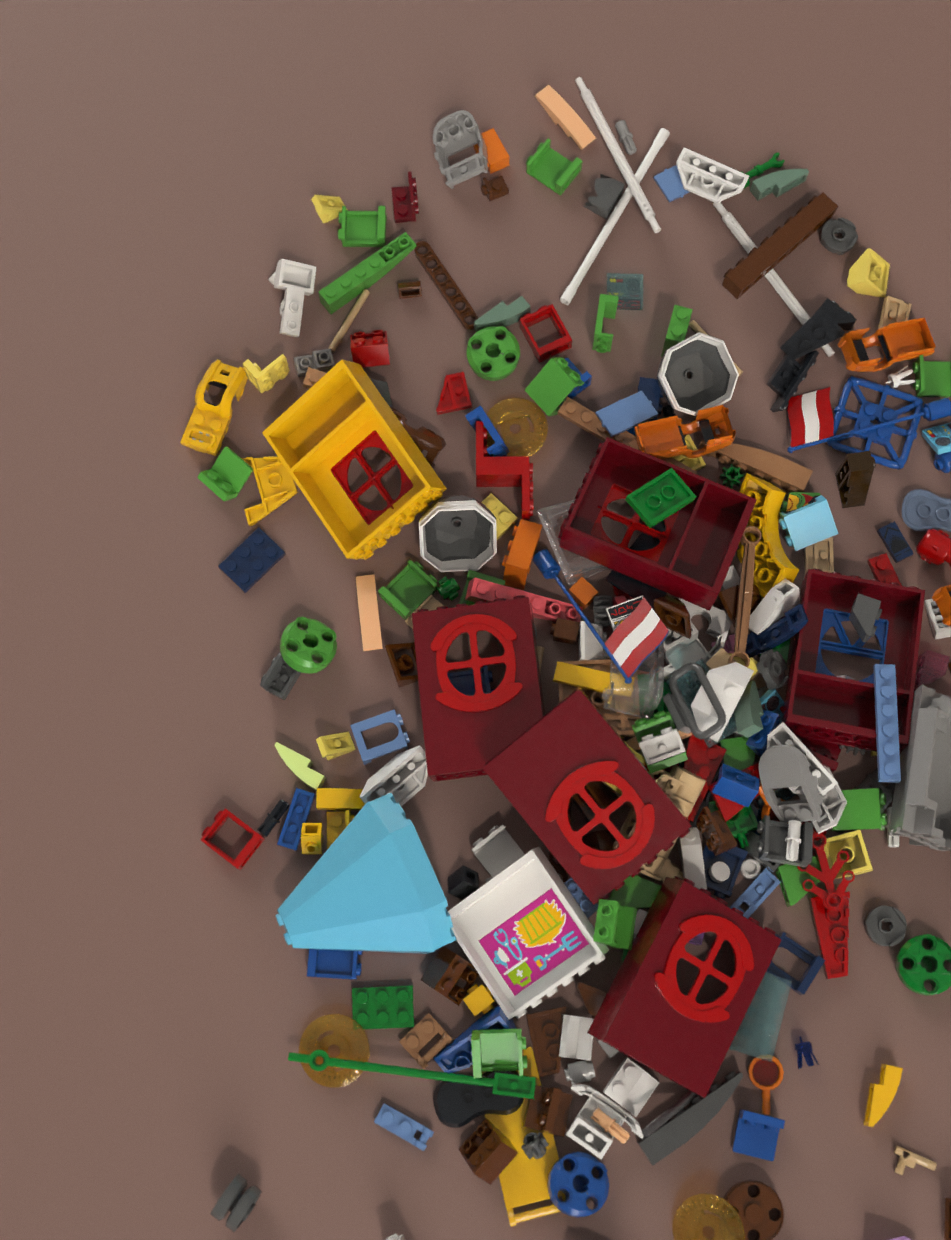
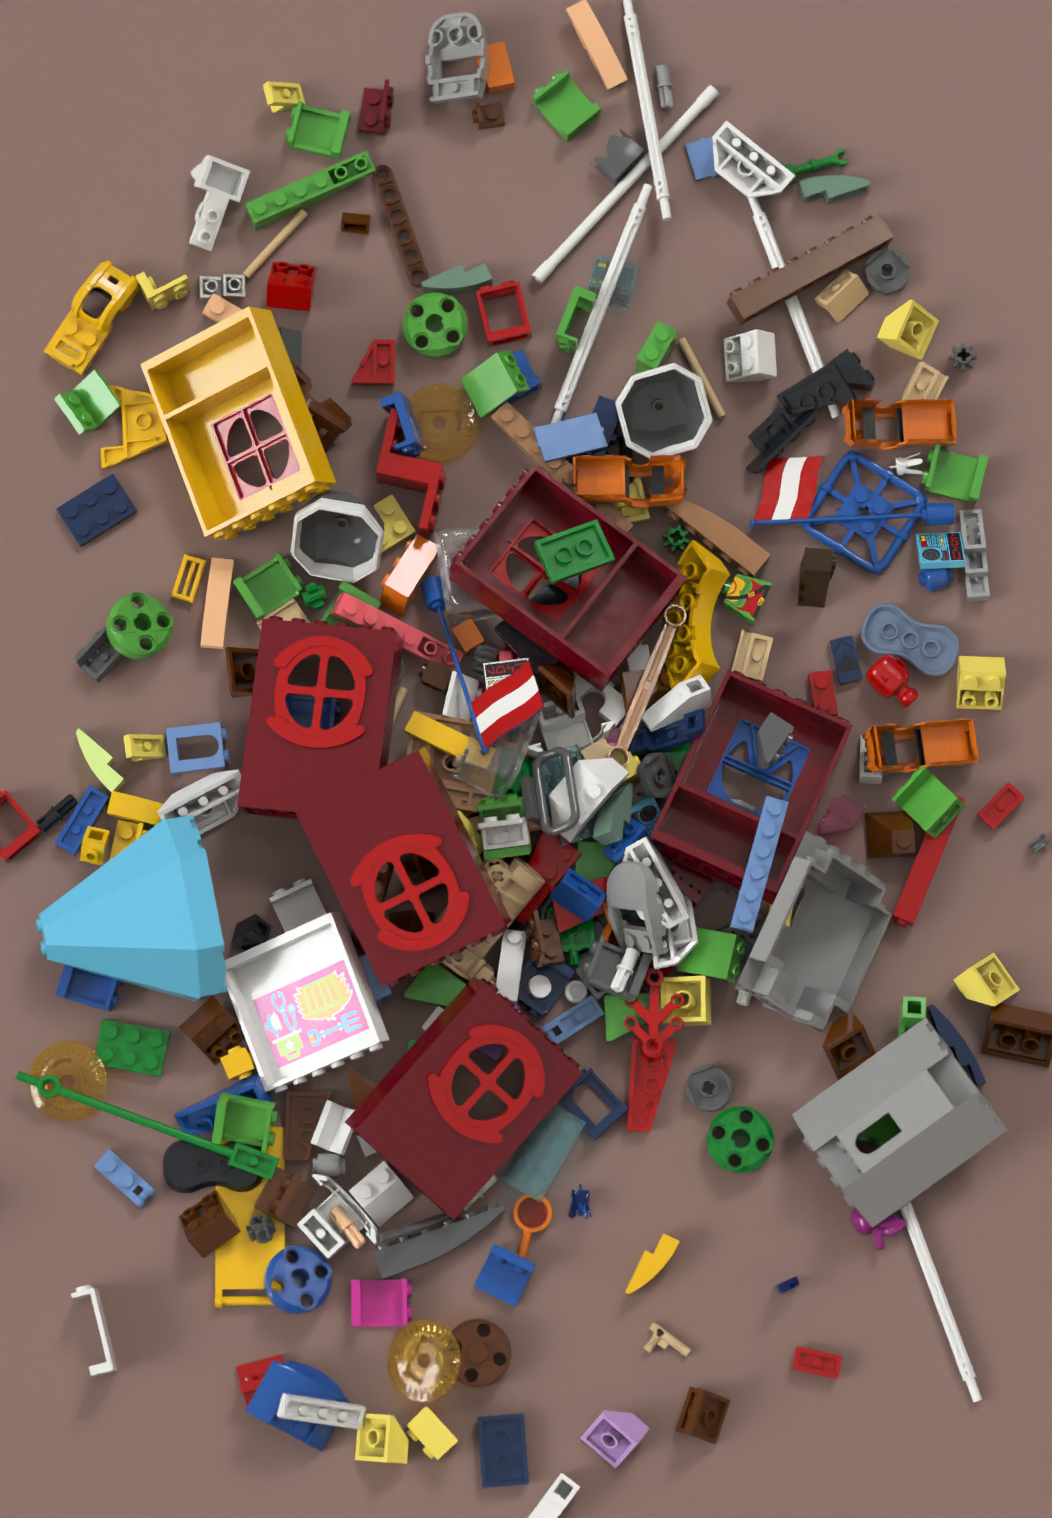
camera: 10 degrees right, 5 degrees up
(339, 614) = (183, 597): none -> yellow tile
(421, 1035) = (167, 1087): medium nougat plate -> none
(614, 924) = (401, 1014): bright green panel -> none
(621, 312) = (601, 305): none -> white axle
(655, 1186) = (380, 1302): none -> dark pink panel
(750, 322) = (750, 356): none -> white slope
(808, 524) = (747, 617): medium azure panel -> none
(809, 260) = (842, 295): none -> tan panel
(918, 286) = (958, 360): none -> dark grey gear

